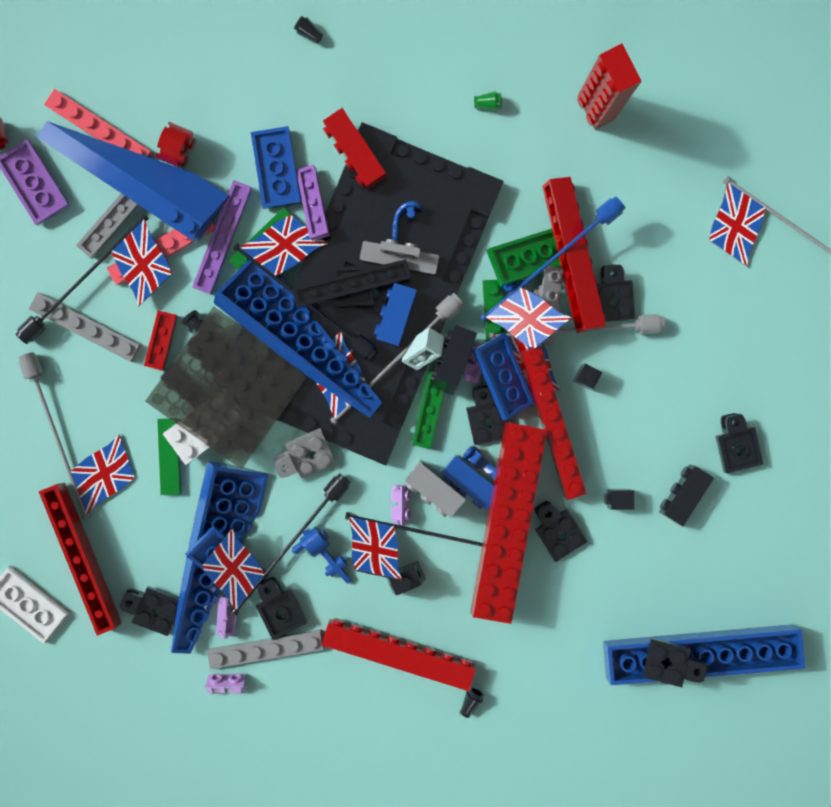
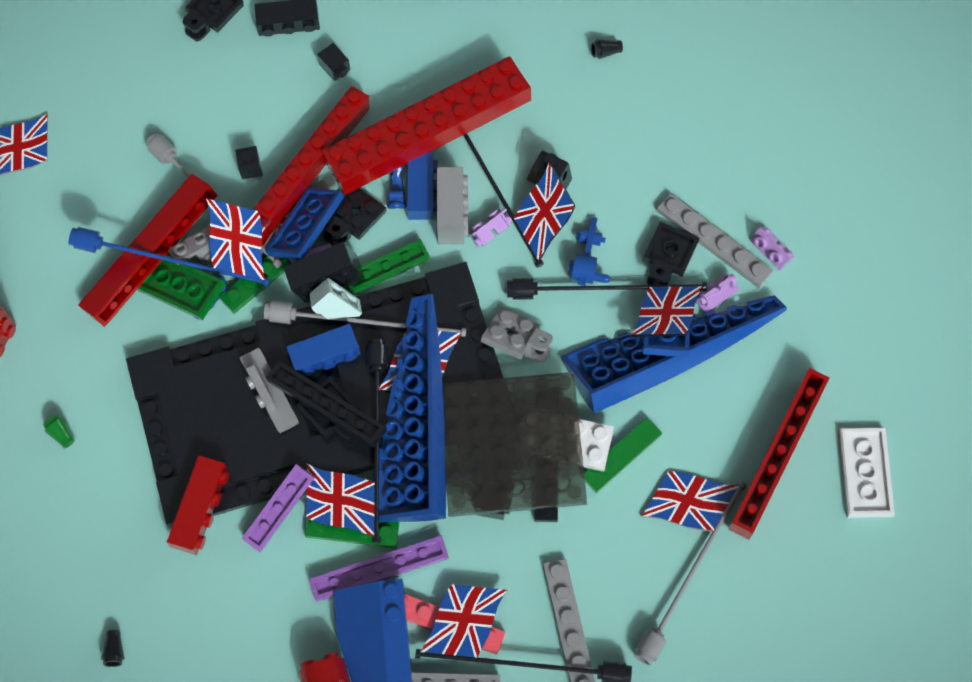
camera: 130 degrees left, 20 degrees down
(142, 607) = (771, 369): black plate -> none
(160, 340) = (522, 546): red plate -> none
(193, 321) = (479, 529): black wheel -> none
(275, 167) = (272, 572): blue plate -> none
(398, 654) = (619, 132): red brick -> none
(408, 206) = (213, 414): blue piece -> none
(553, 523) = (401, 97): black plate -> none
(616, 286) = (148, 195): black plate -> none

